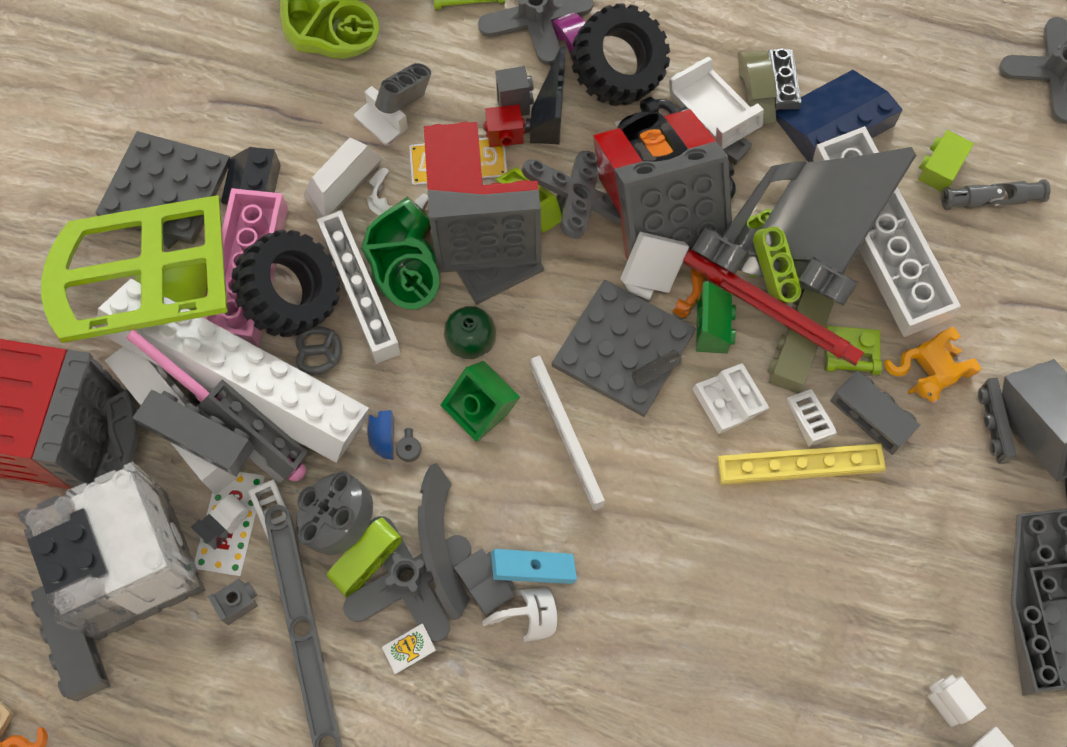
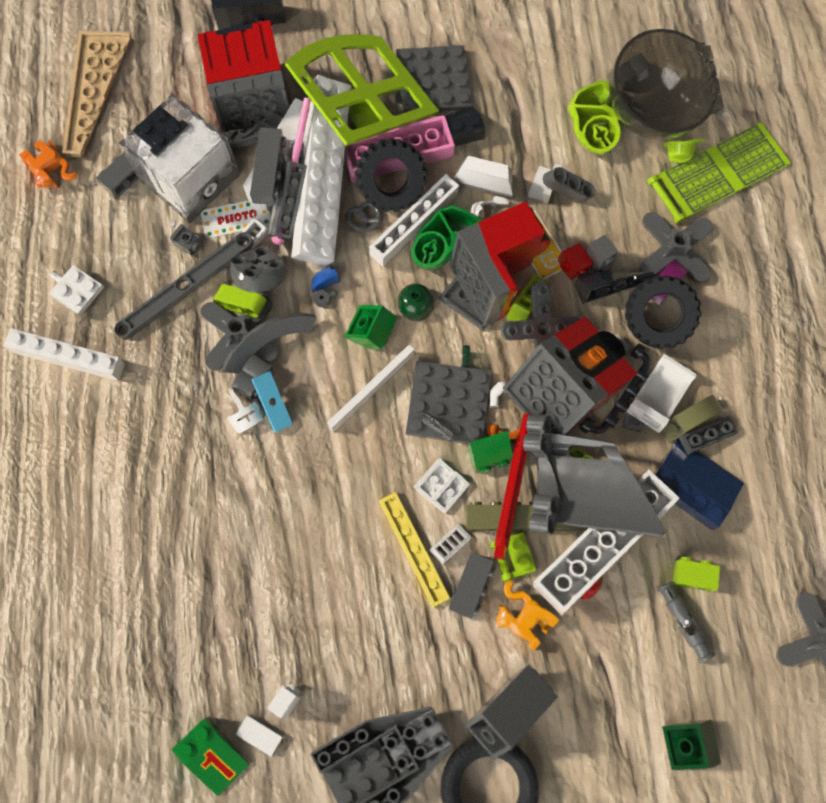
camera: 65 degrees right, 5 degrees up
(221, 521) = (230, 211): leg -> none
(408, 648) = (196, 351): white sticker -> none
(573, 301) = (465, 356): none -> clear green tile
(654, 262) = (512, 395): white tile -> none
(767, 255) = (534, 480): lime beam -> none
(997, 421) = (501, 673): dark grey tile -> none

